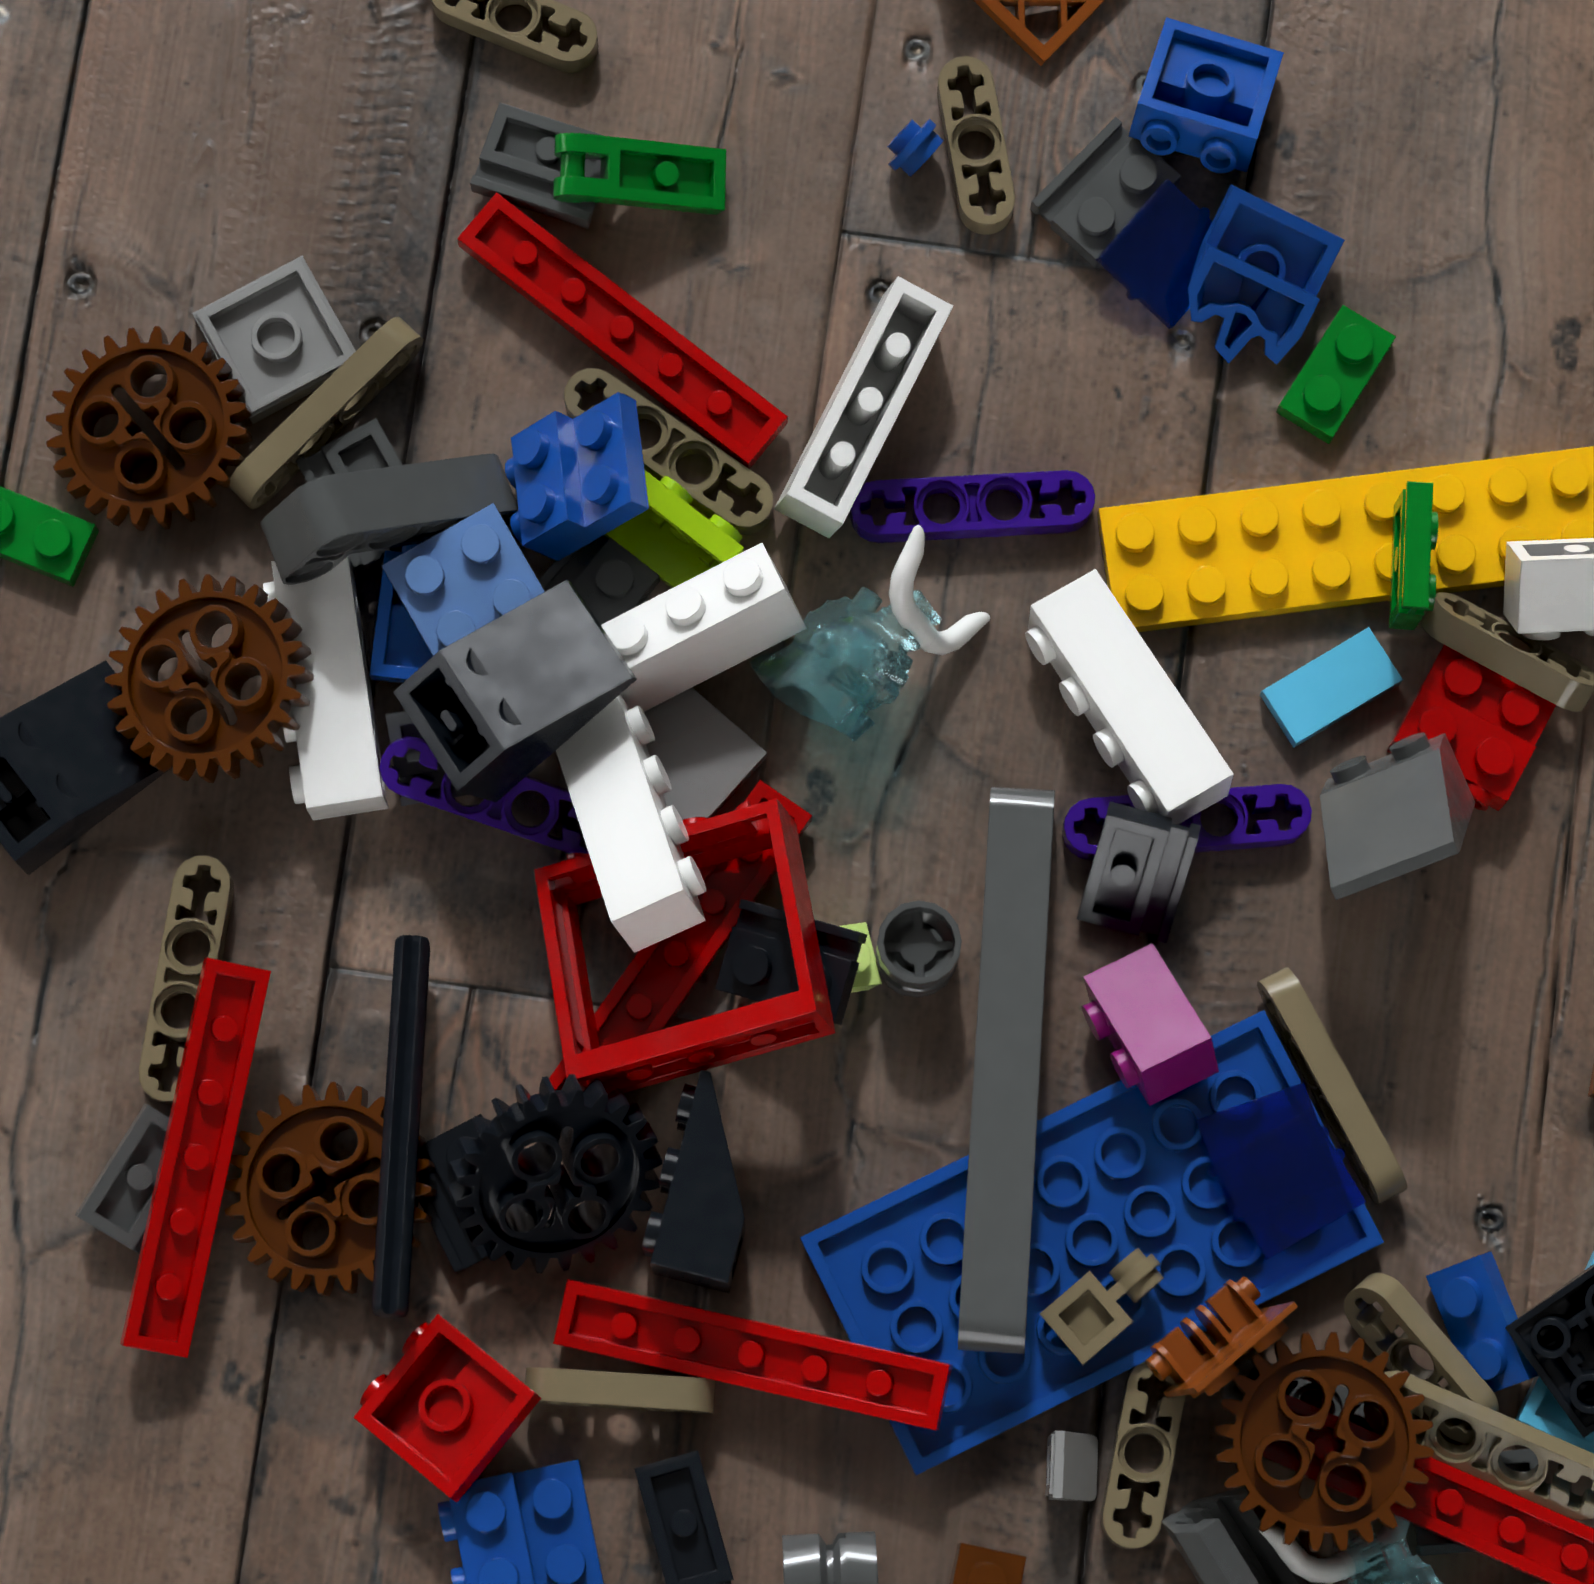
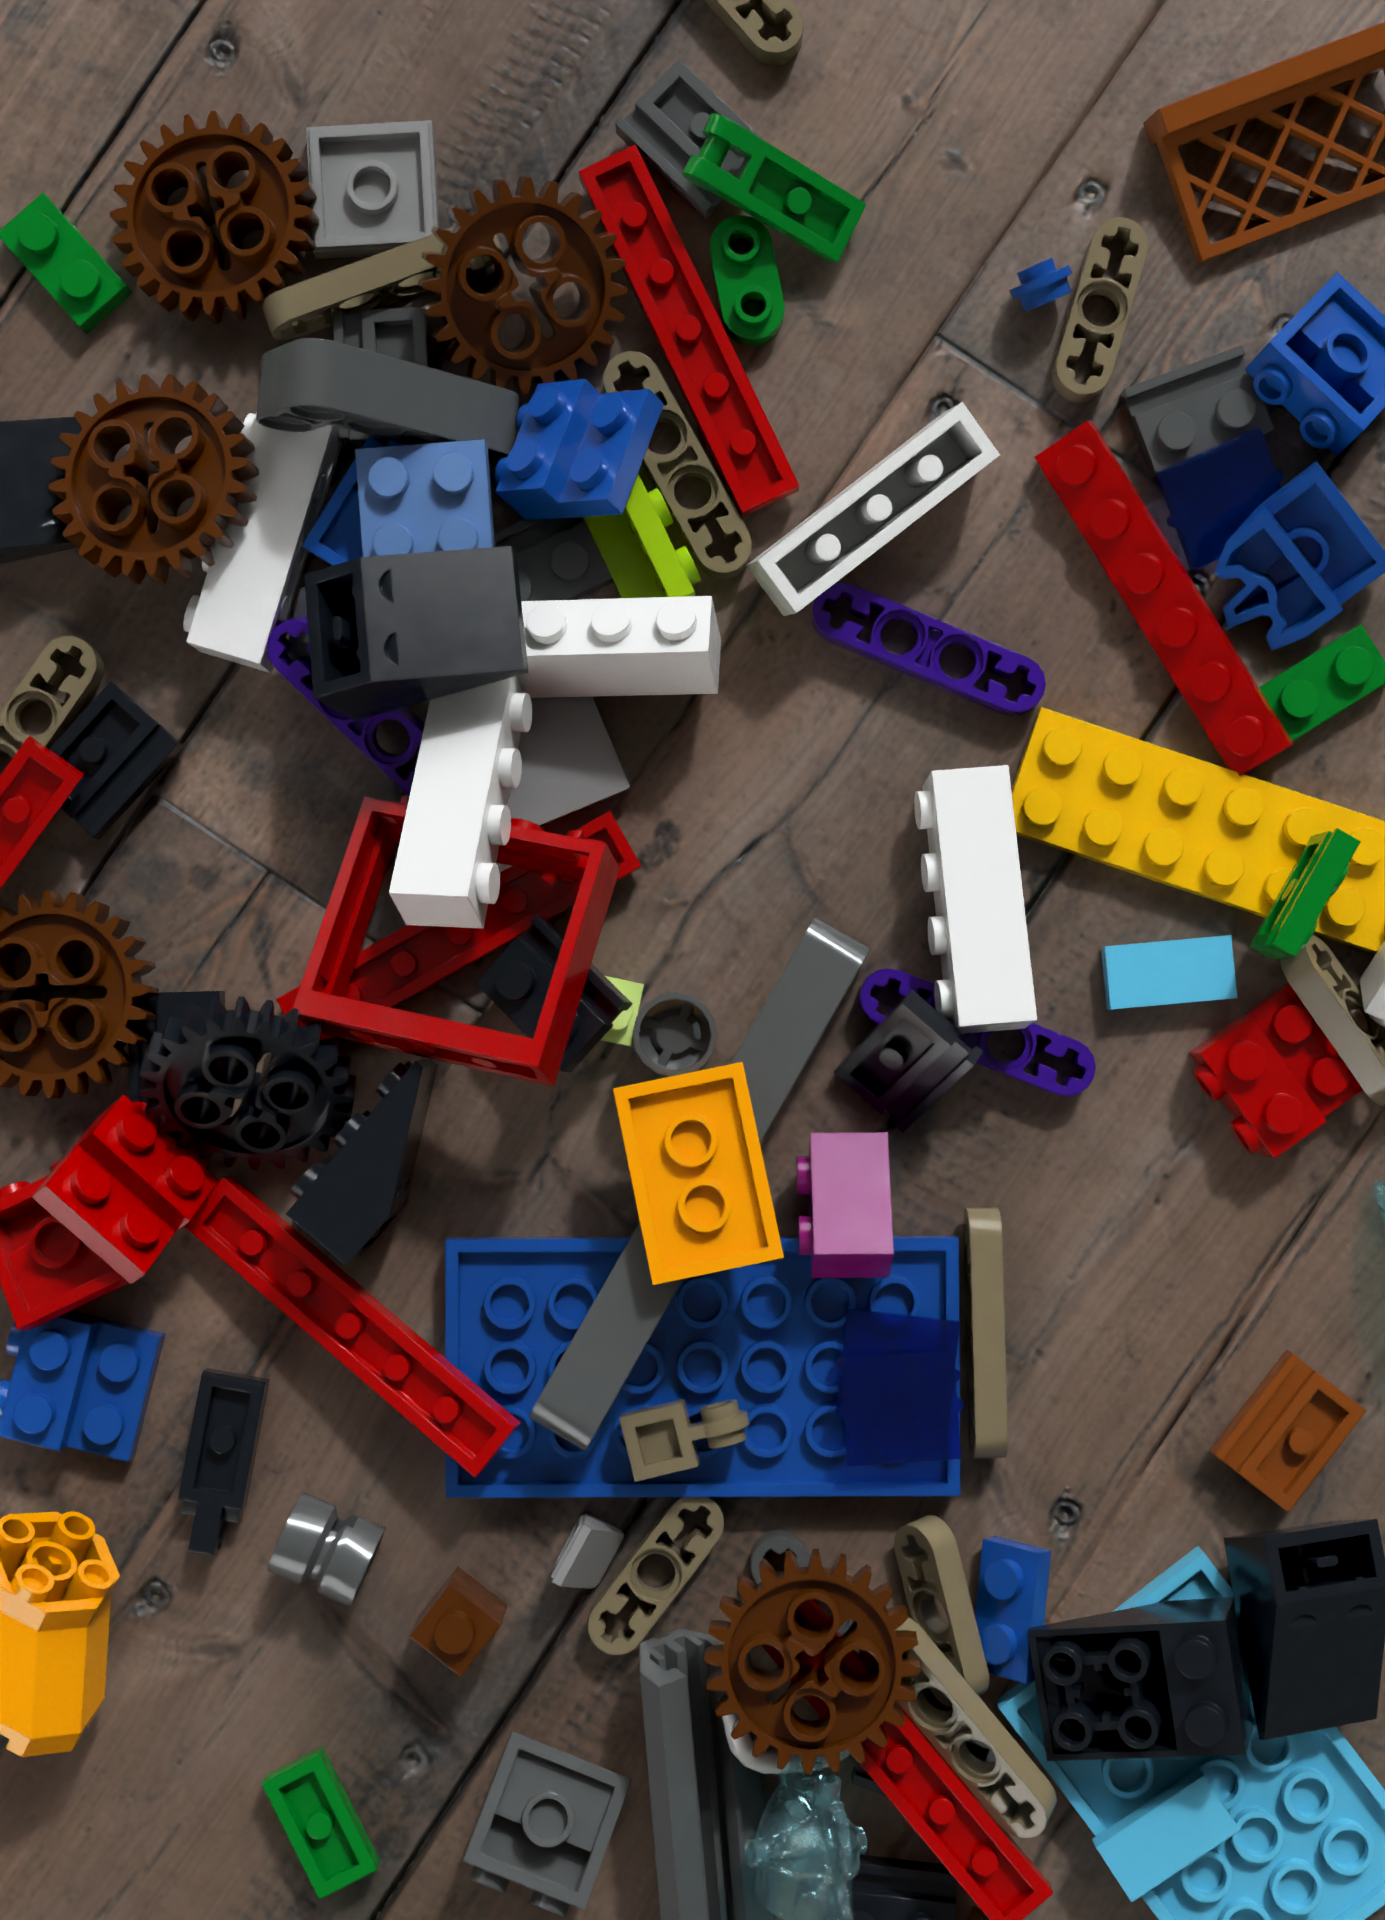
camera: 25 degrees right, 10 degrees up
(290, 939) = (119, 754): none -> black plate
(401, 1127) = (132, 975): black axle -> none
(488, 1321) = (126, 1188): none -> red plate
(489, 312) = (572, 256): none -> reddish brown gear
(622, 1390) = (226, 1298): dark tan beam -> none
(649, 261) = (746, 278): none -> green plate
(858, 657) = (751, 740): clear light blue helmet -> none
(1002, 1050) = (698, 1173): none -> light orange plate
(1159, 365) = (1163, 599): none -> red plate
(1211, 1371) = (745, 1546): dark orange hinge -> none
(1394, 813) = (1163, 1133): dark grey slope -> none

